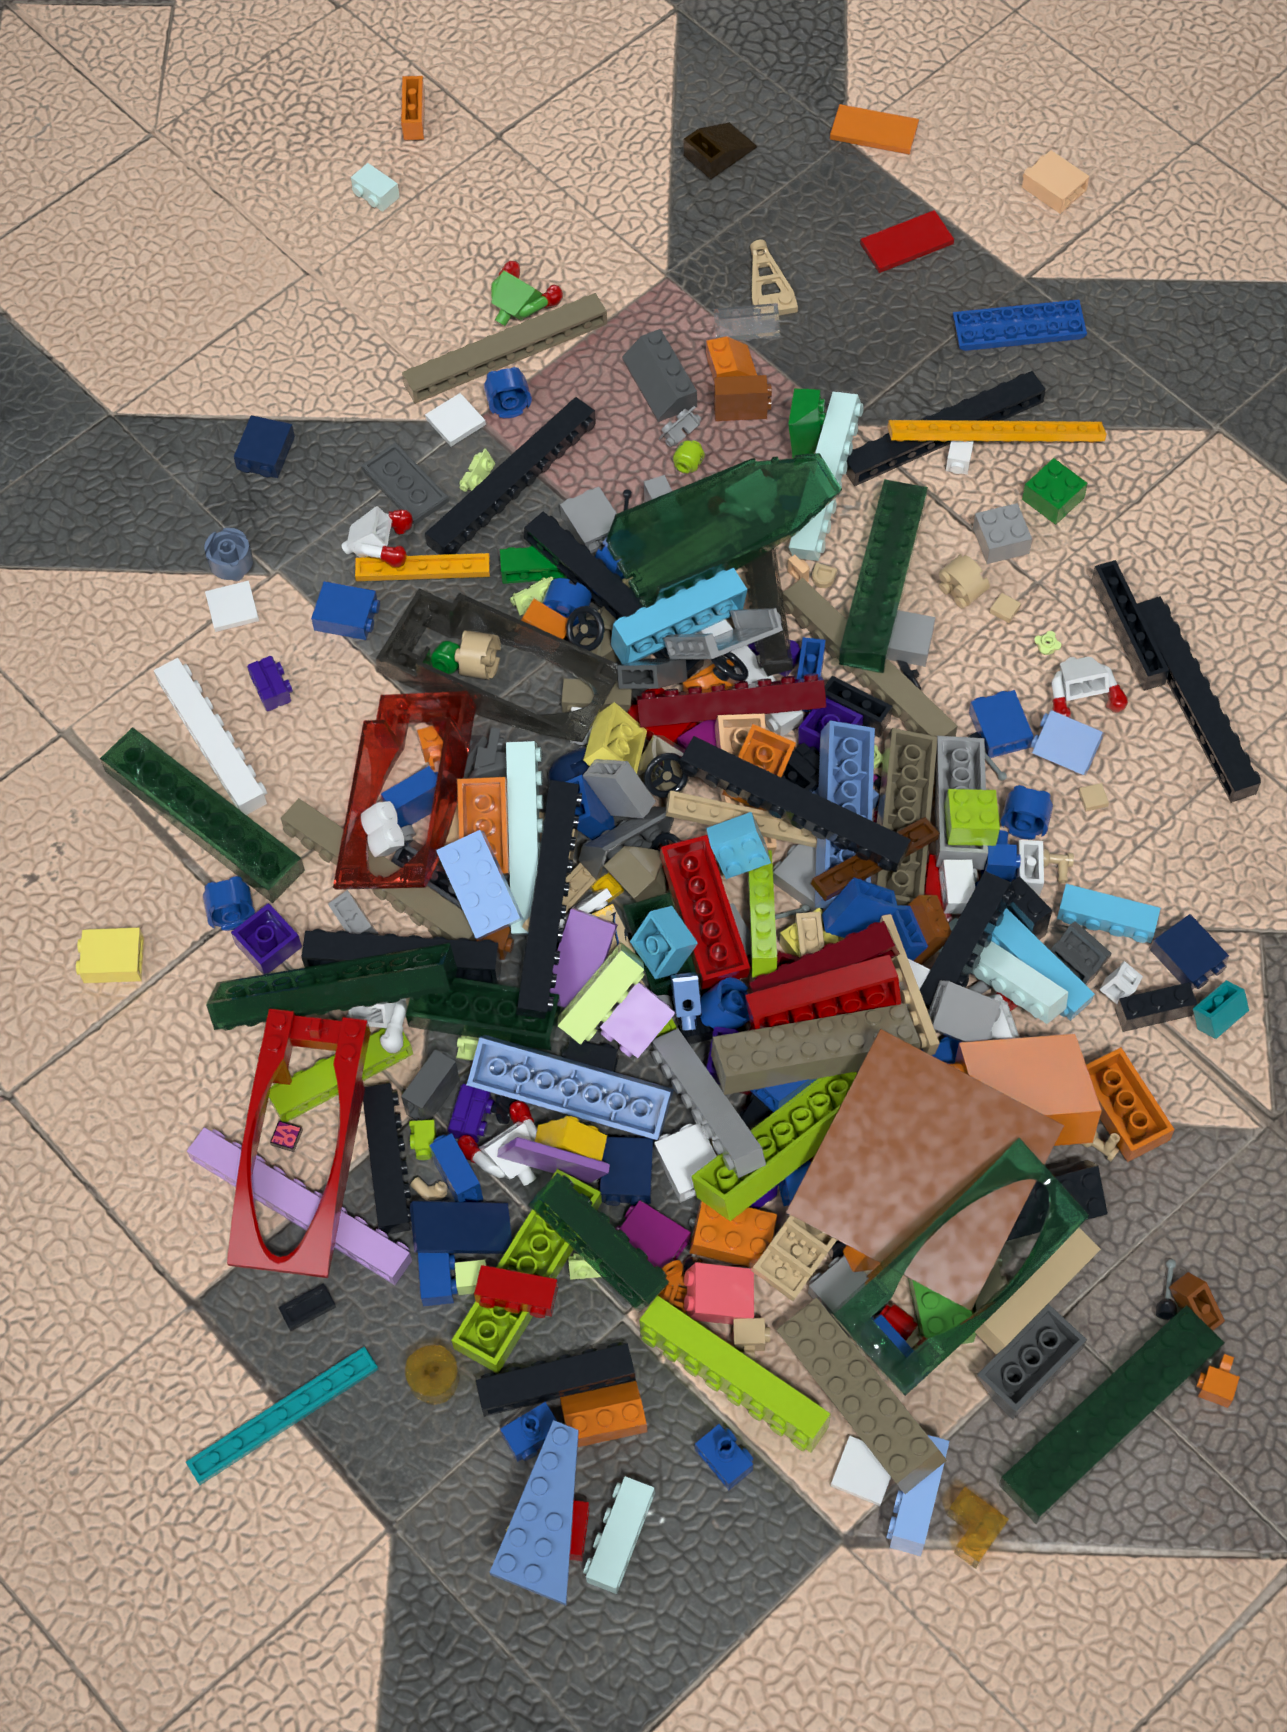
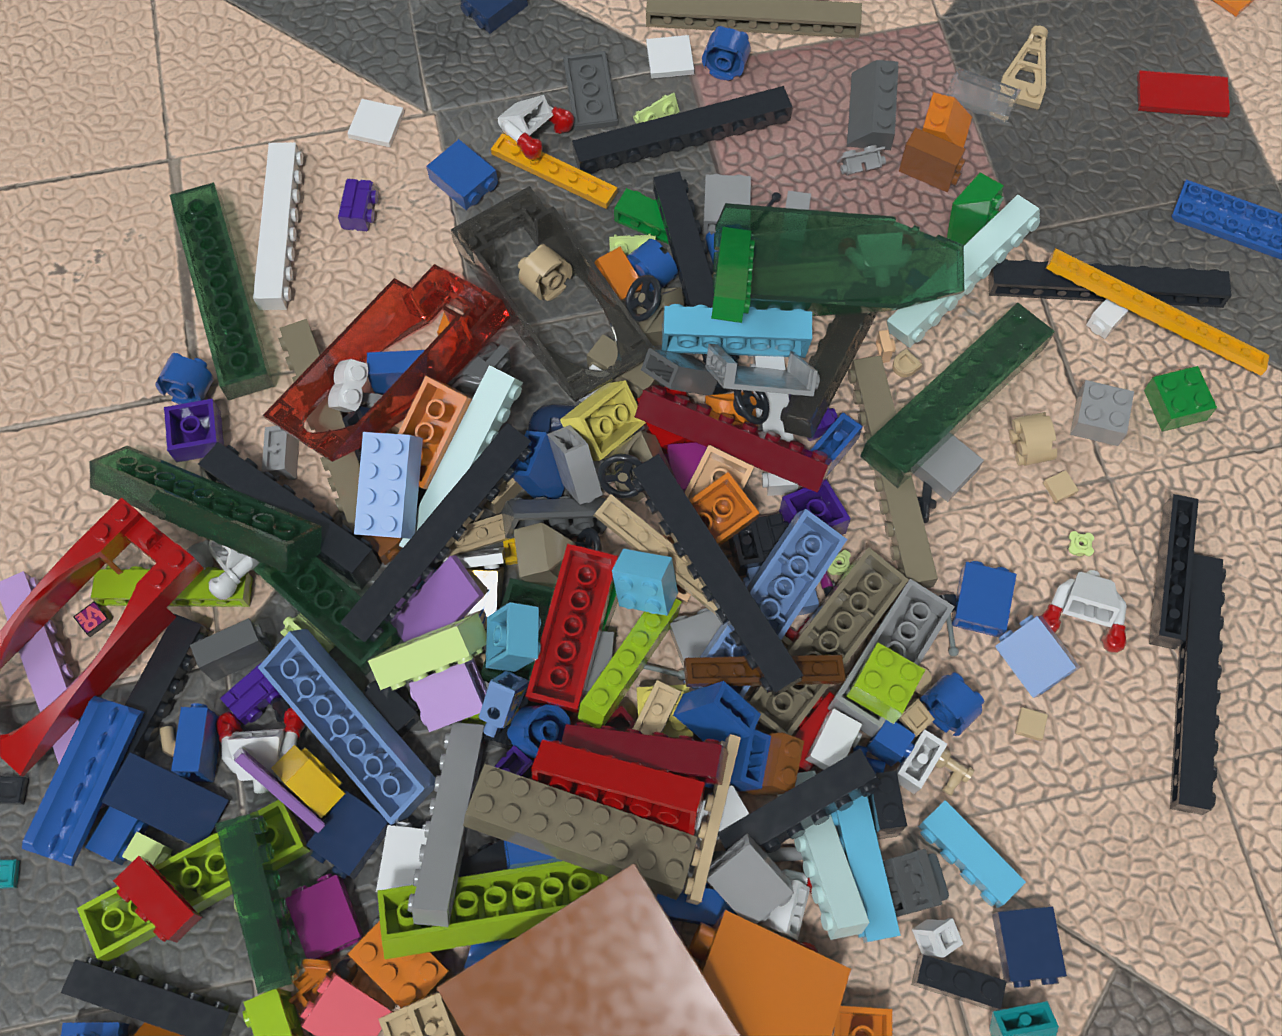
camera: 30 degrees right, 5 degrees up
(110, 955) = (66, 372): light yellow brick -> none
(228, 554) = (399, 76): sand blue brick -> none
(384, 1249) = (82, 780): none -> blue plate
(422, 1135) = (199, 691): lime brick -> none
(428, 1360) = (32, 926): clear yellow brick -> none
(444, 657) = (512, 258): green head -> none
(656, 568) = (733, 275): none -> green brick
(688, 456) = (851, 190): lime head -> none
(874, 711) = (865, 521): black brick -> none
(1008, 833) = (916, 717): none -> tan tile

